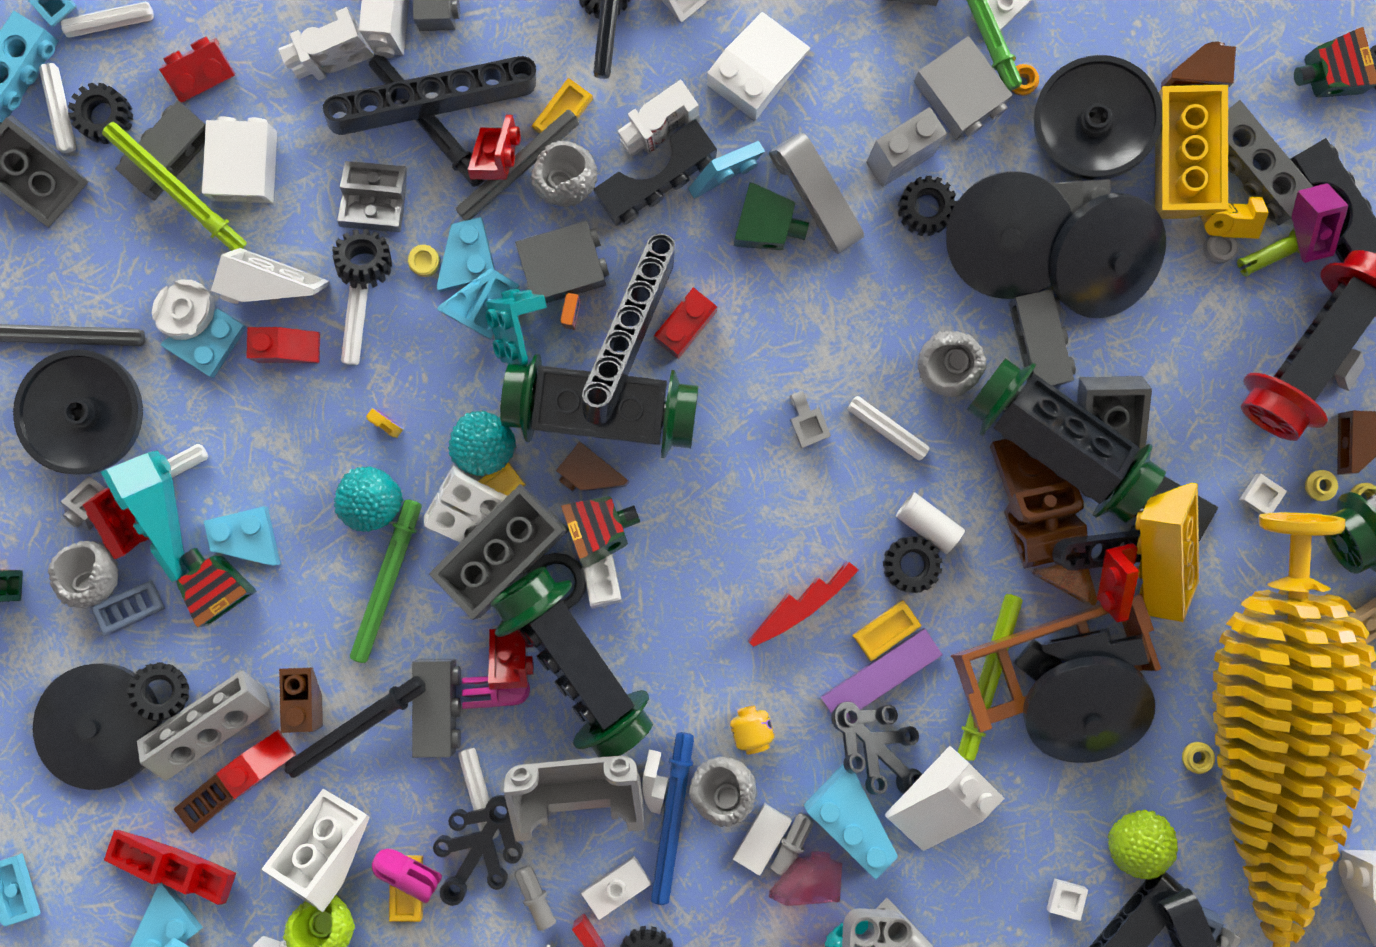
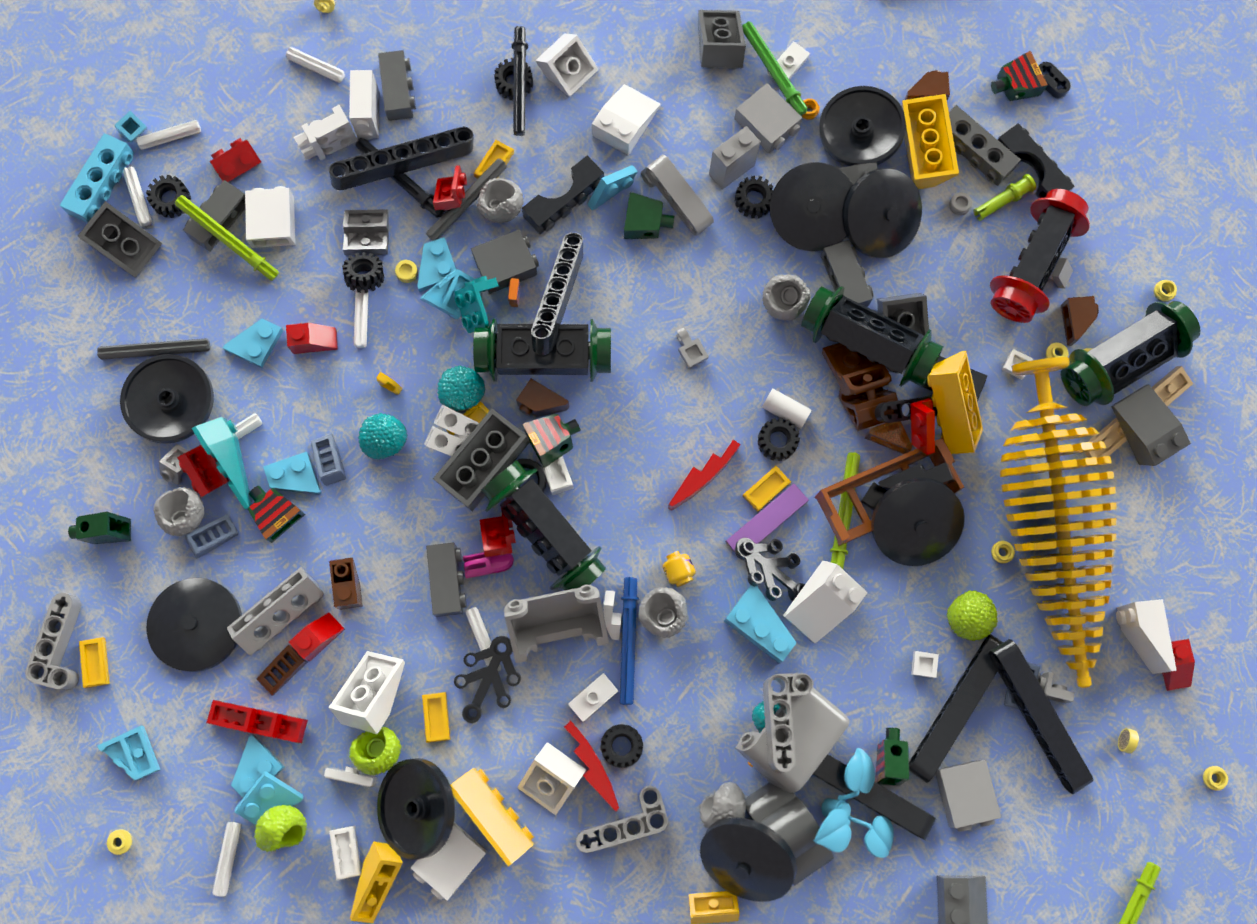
camera: 15 degrees left, 10 degrees down
(153, 672) = (233, 578): black tyre -> none
(183, 309) = (237, 321): white tile -> none
(252, 277) = (286, 292): white slope -> none
(305, 531) = (331, 473): none -> sand blue slope
(385, 580) = (400, 494): bright green axle -> none
(396, 699) = (388, 598): black axle -> none
(406, 874) = (436, 701): dark pink arm -> none
(535, 898) = (533, 710): light grey axle -> none
(658, 119) = (561, 158): white hips -> none
(685, 323) = (596, 291): red brick -> none
(762, 839) = (696, 648): white tile -> none
(792, 844) = (719, 649): light grey axle -> none
(809, 881) = (735, 670): clear pink slope -> none
(888, 428) = (748, 348): white axle -> none
(1239, 220) = (968, 183): yellow leg -> none
(1318, 221) = (1021, 175): magenta slope -> none

